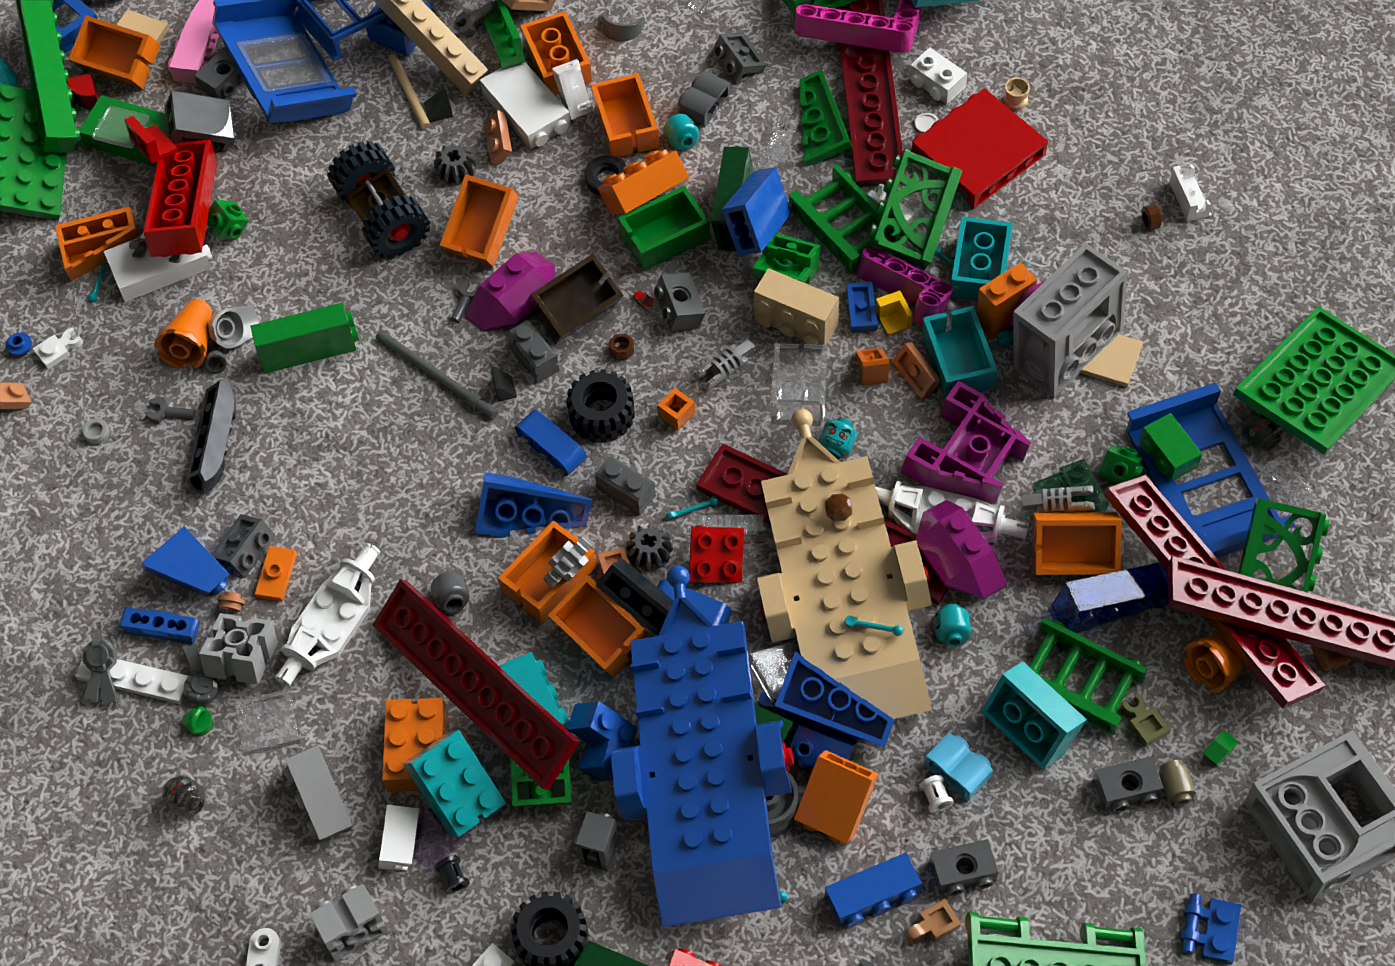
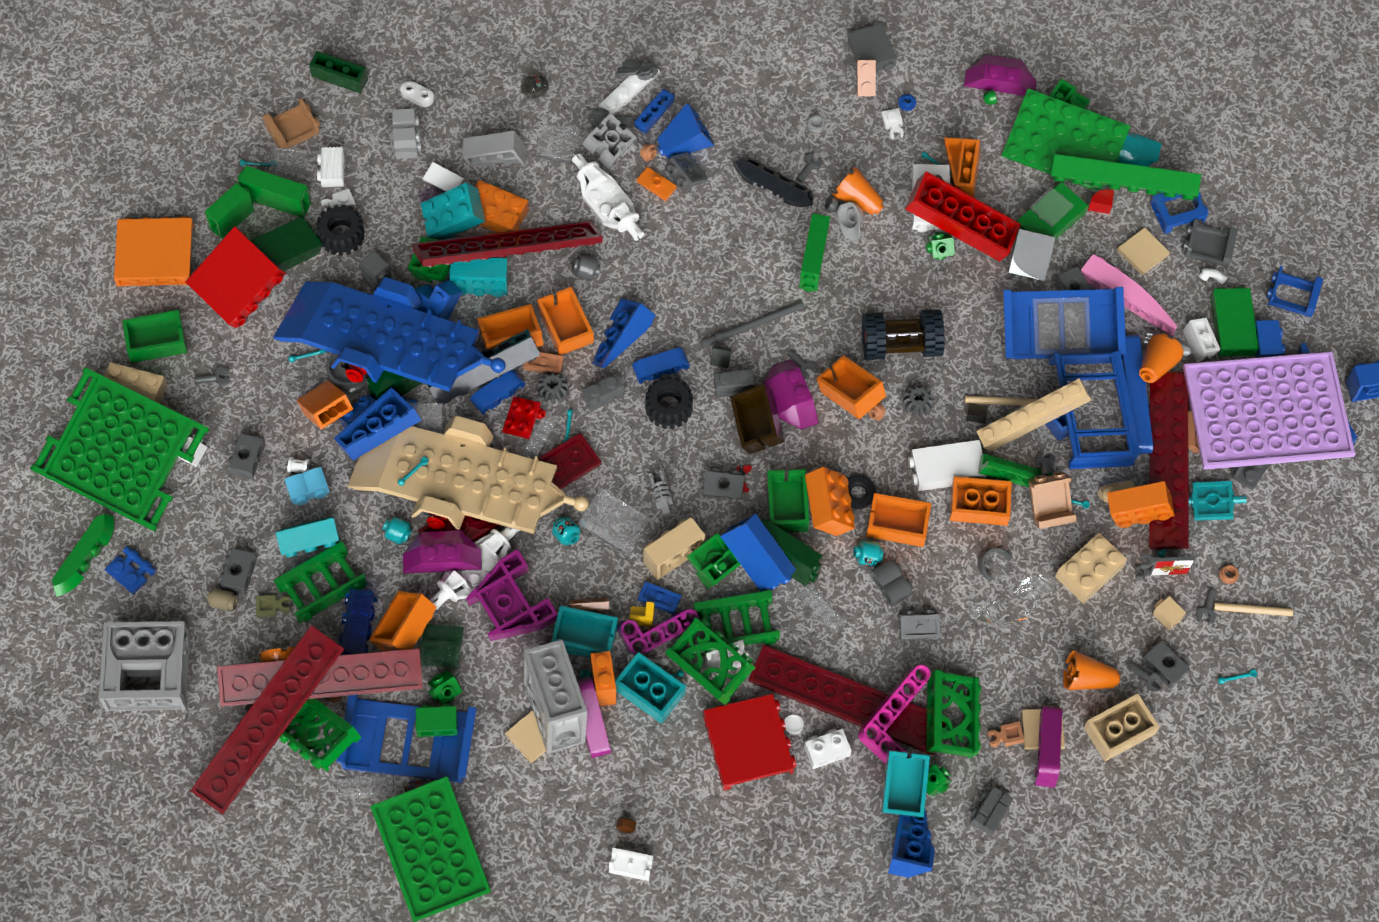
camera: 110 degrees right, 5 degrees up
(114, 51) = (1123, 225): orange piece -> none
(149, 140) = (1022, 214): red panel -> none
(198, 721) = (580, 111): green tile -> none
(452, 874) = (400, 195): black bush -> none
(497, 137) = (918, 432): nougat plate -> none
(568, 561) = (553, 321): light grey gear -> none
(572, 89) = (939, 493): white hinge -> none
(621, 346) = (711, 438): reddish brown tile -> none
(675, 402) = (642, 441): orange plate -> none
(821, 120) = (817, 647): green wing -> none
(838, 507) = (502, 489): reddish brown tile -> none
(873, 366) = (611, 580): orange slope -> none
(873, 890) = (262, 403): blue brick -> none
(936, 920) = (225, 426): medium nougat plate -> none
(1016, 93) = (783, 789): tan wheel -> none
(1058, 500) = (435, 625): light grey hinge -> none
(1220, 748) = (227, 636): green piece -> none

